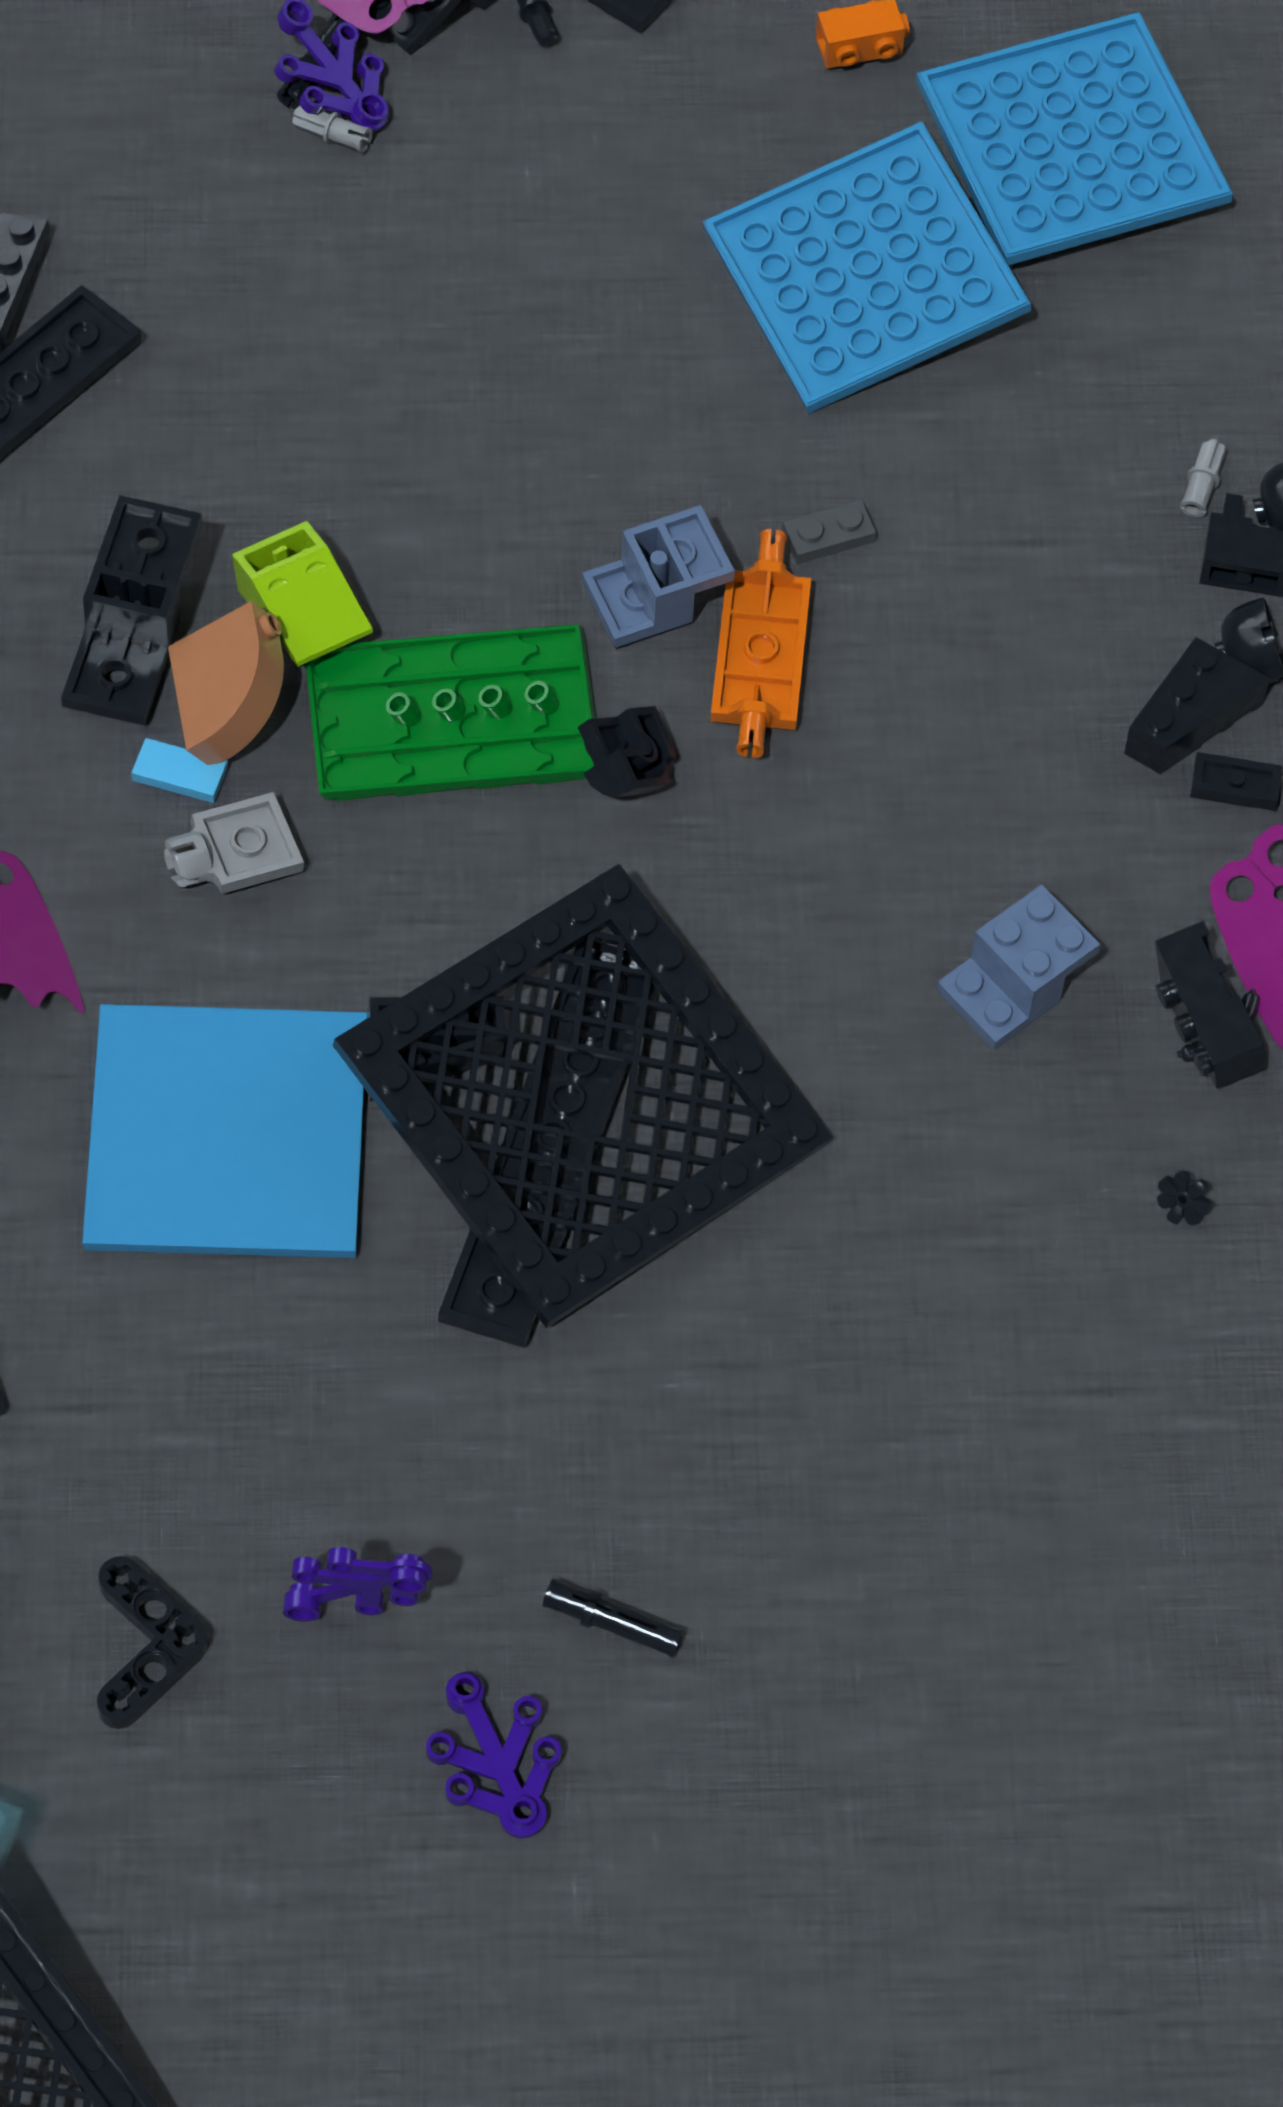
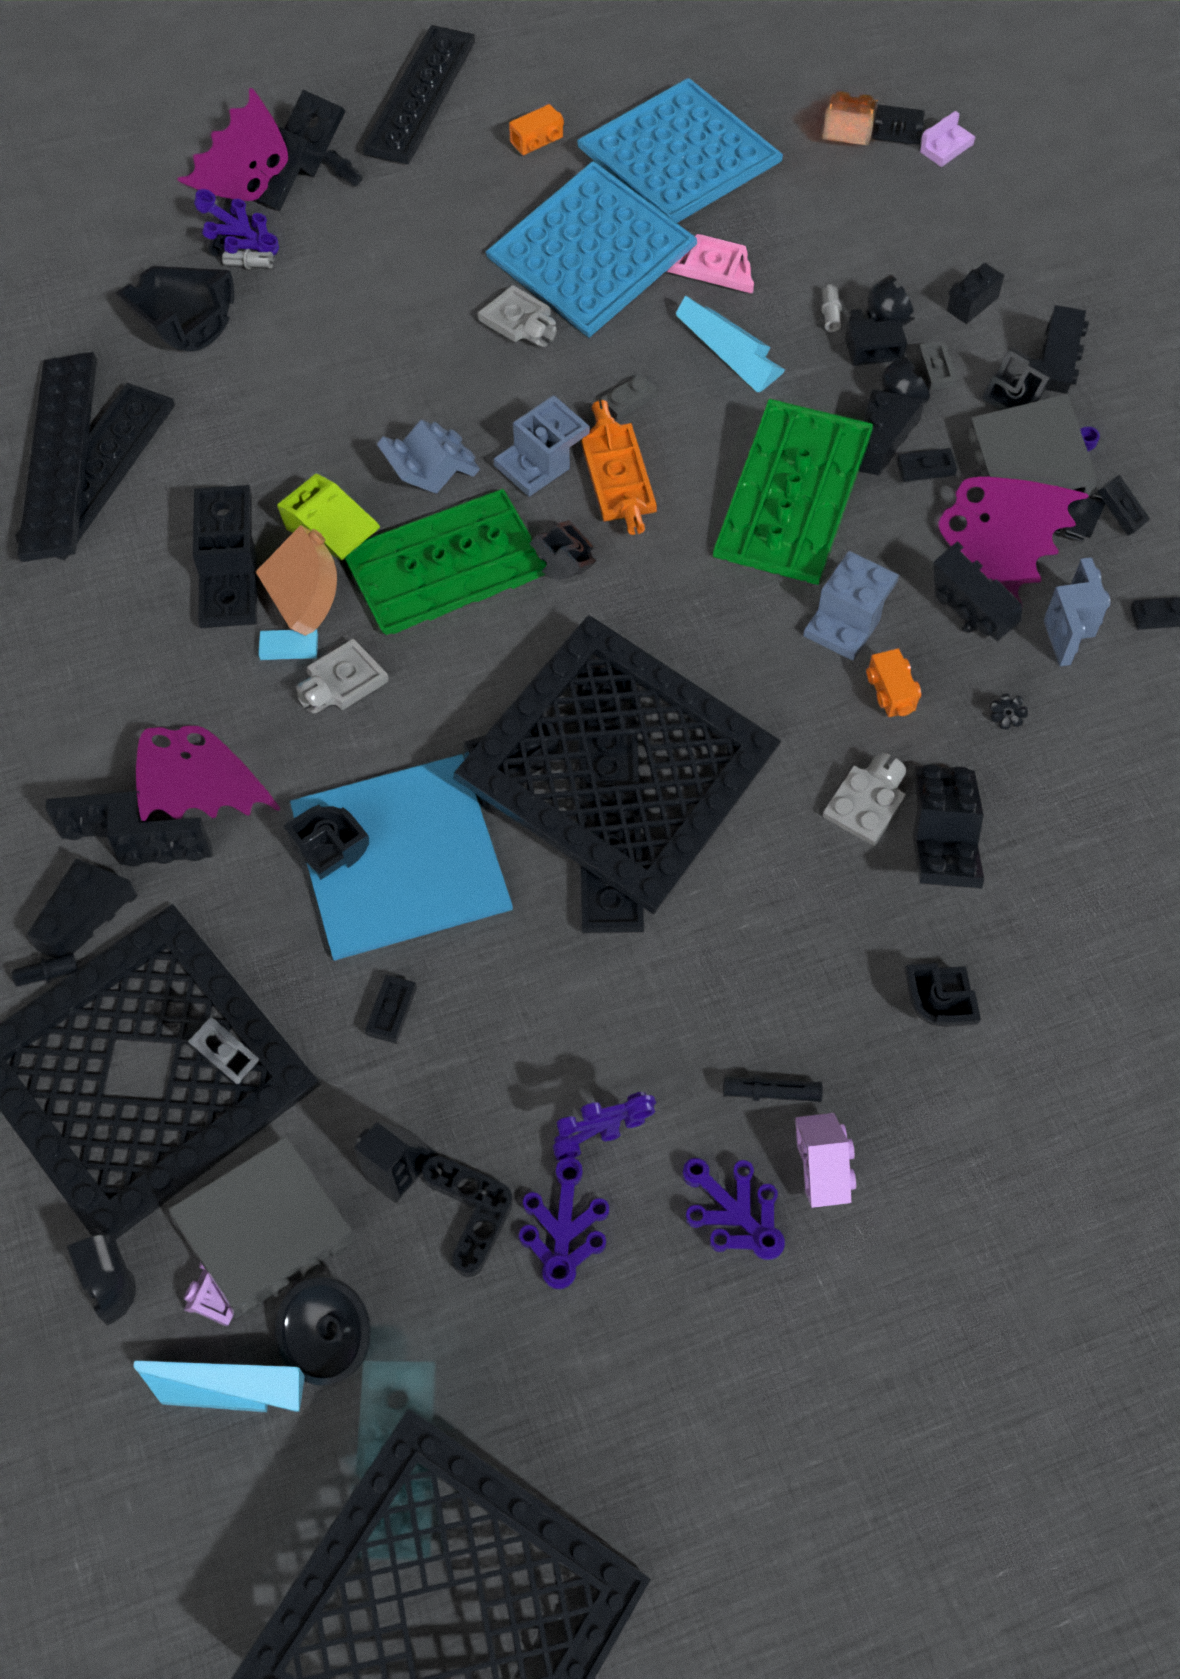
camera: 15 degrees left, 0 degrees up
(63, 1537) = (391, 1158): none -> black wedge
(130, 1076) = (327, 838): none -> black brick
(136, 1341) = (391, 1009): none -> black plate
(202, 180) = (182, 304): none -> black cone
(260, 1707) = (563, 1230): none -> dark purple plant
(484, 542) = (428, 456): none -> sand blue bracket
(640, 1722) = (825, 1159): none -> lavender brick
(710, 350) = (519, 317): none -> light grey plate
(897, 1566) = (942, 995): none -> black brick
(921, 1261) = (868, 799): none -> light grey plate
(1007, 763) = (793, 491): none -> green piece
(1011, 1335) = (948, 827): none -> black bracket
(1022, 491) = (731, 343): none -> medium azure wedge
(1030, 1103) = (893, 683): none -> orange brick
(1054, 349) = (716, 263): none -> bright pink wing

